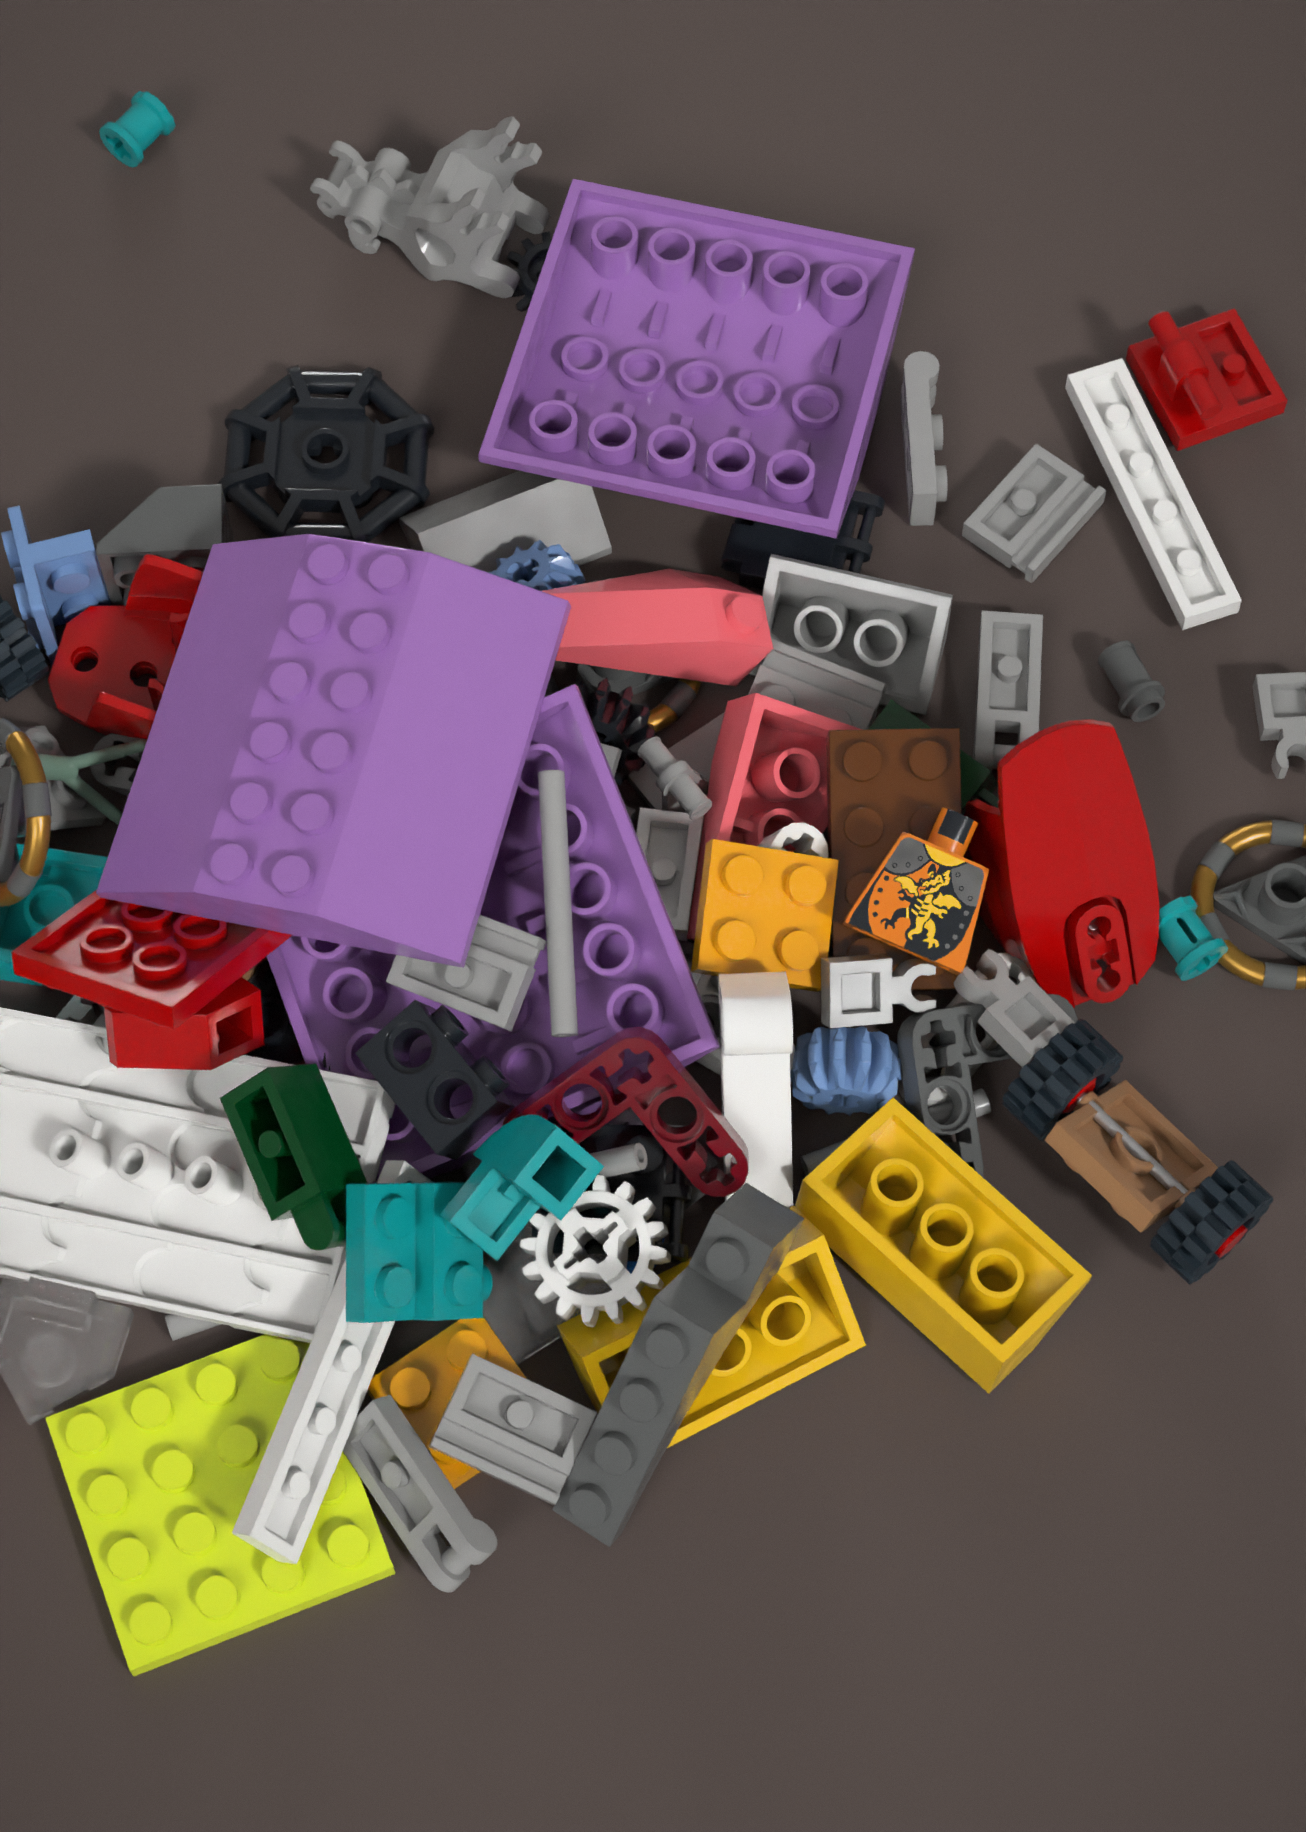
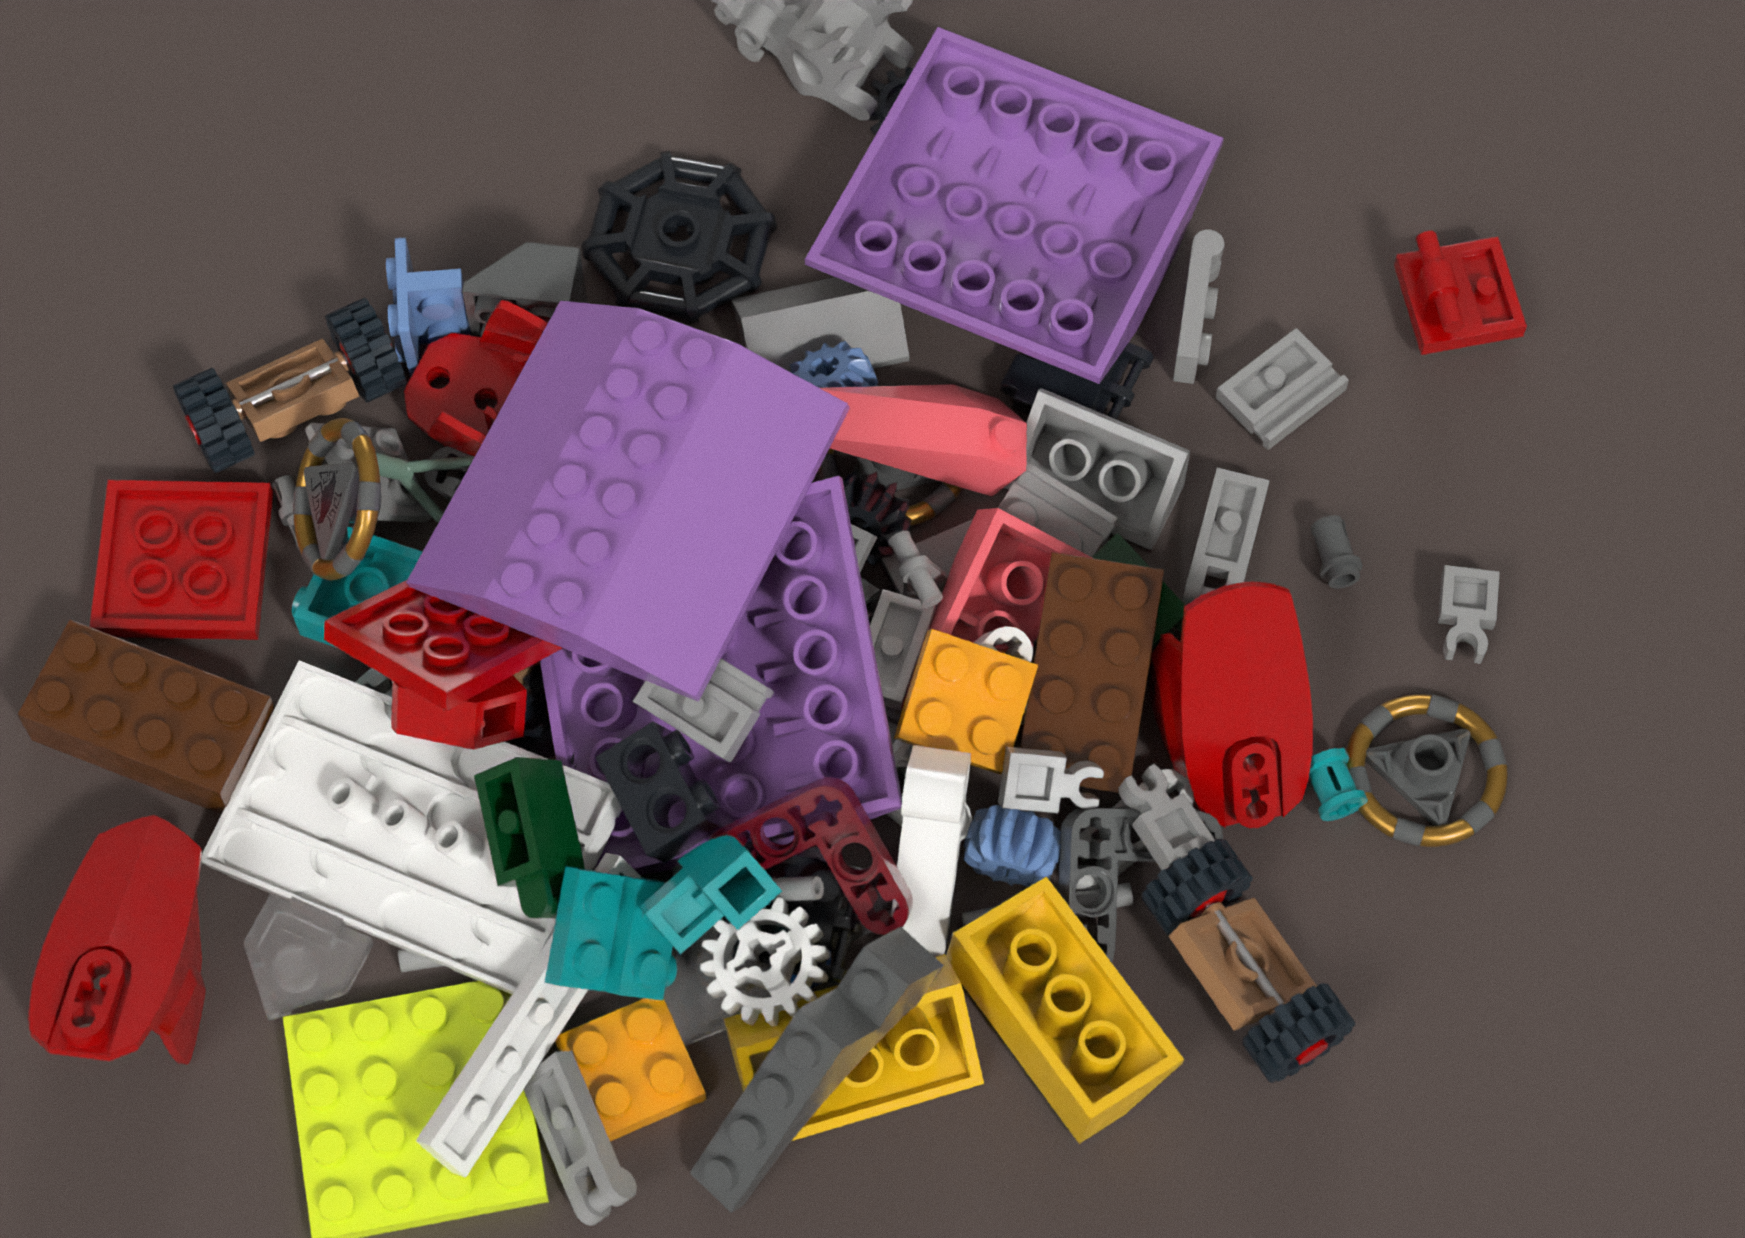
camera: 10 degrees right, 0 degrees up
(512, 1429) = (667, 1098): light grey plate -> none
(558, 903) = (789, 661): light grey piece -> none
(925, 895) = (1105, 707): torso -> none
(1153, 494) = (1390, 390): white plate -> none

